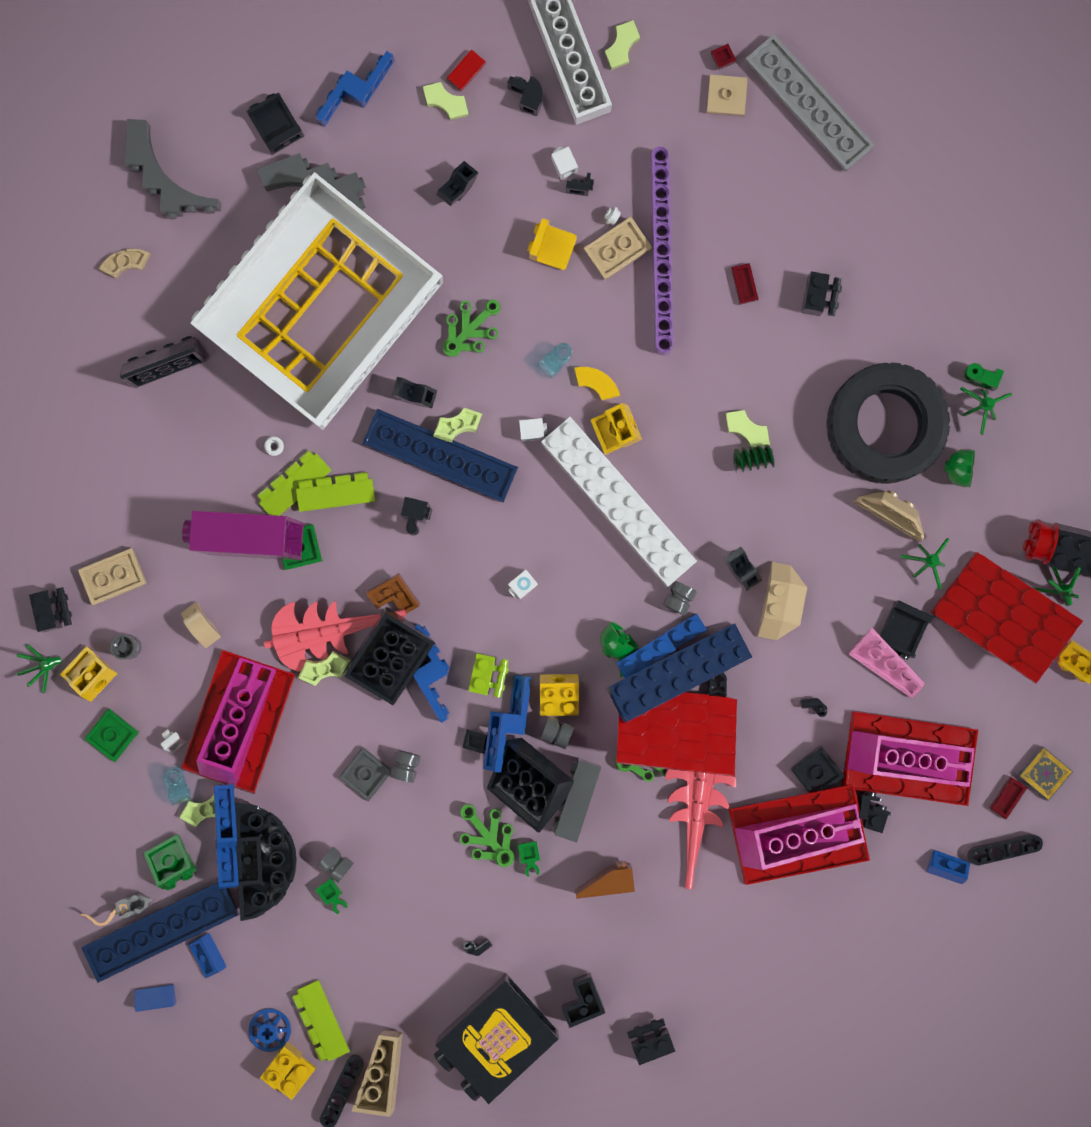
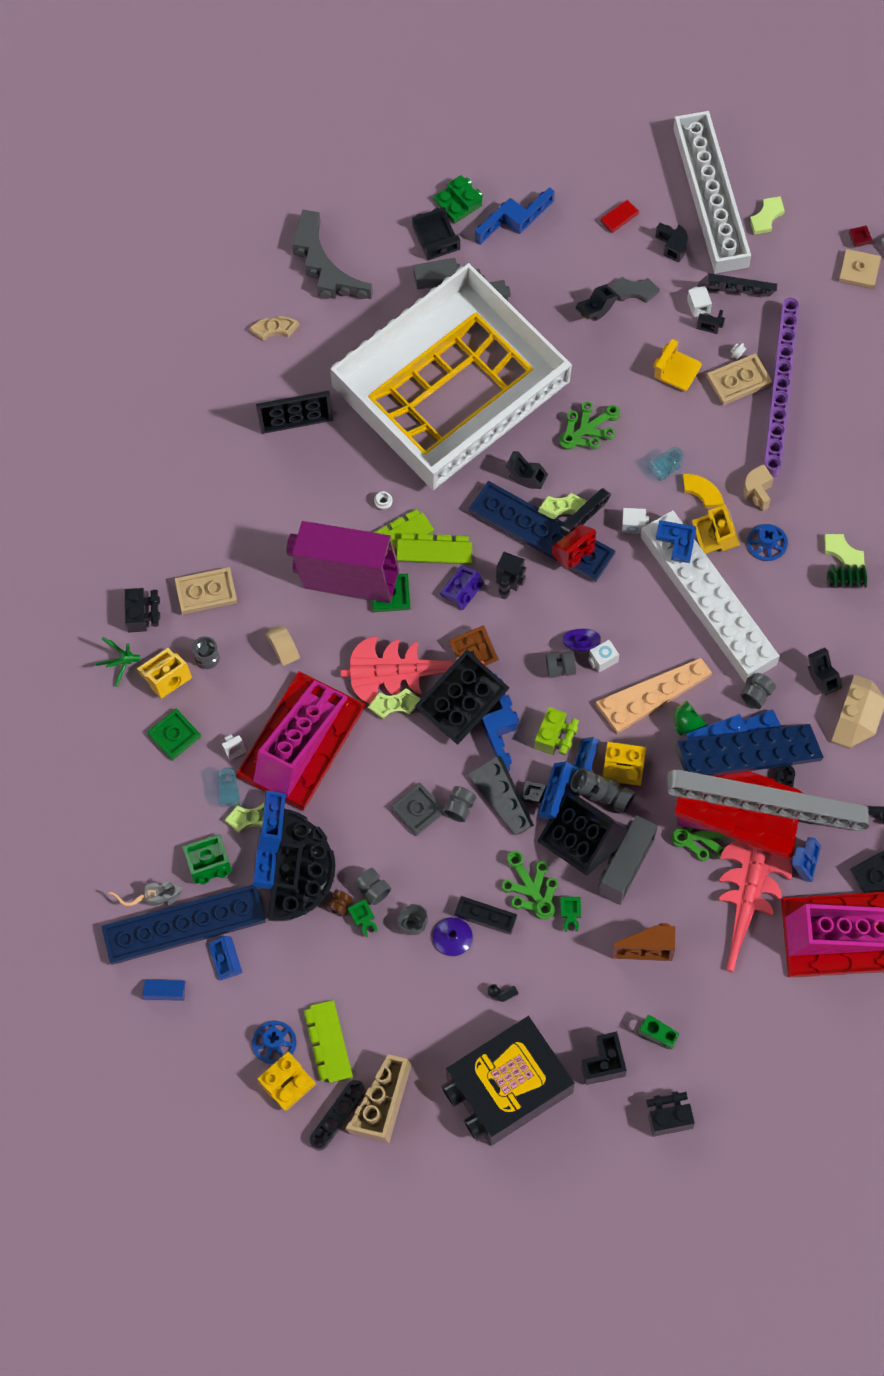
camera: 15 degrees right, 20 degrees down
(292, 76) = (459, 198): none -> green plate
(306, 885) = (339, 903): none -> reddish brown wheel
(370, 530) = (462, 586): none -> dark purple bracket
(379, 892) = (412, 920): none -> dark grey hair
(422, 887) = (456, 945): none -> dark purple dish
(438, 97) = (600, 241): yellowish green tile -> none
(444, 747) = (502, 793): none -> black wing
(449, 873) = (485, 915): none -> black plate
(476, 473) = (575, 546): none -> red slope
(481, 431) = (589, 509): none -> black beam
(486, 158) = (642, 289): none -> dark grey tile
(488, 598) = (567, 666): none -> dark grey wheel
(495, 565) = (581, 639): none -> dark purple dish
(528, 731) = (589, 784): none -> dark grey wheel
(565, 624) = (644, 698): none -> light nougat wing
(583, 449) = (680, 535): none -> blue plate
(596, 140) = (738, 285): none -> black wing
(629, 963) = (658, 1032): none -> green leg
(649, 367) = (755, 485): none -> tan brick
(669, 429) = (767, 539): none -> blue wheel
(703, 724) = (768, 800): none -> light grey beam
(744, 283) = (857, 427): dark red tile -> none
(747, 774) = (806, 859): none -> blue plate

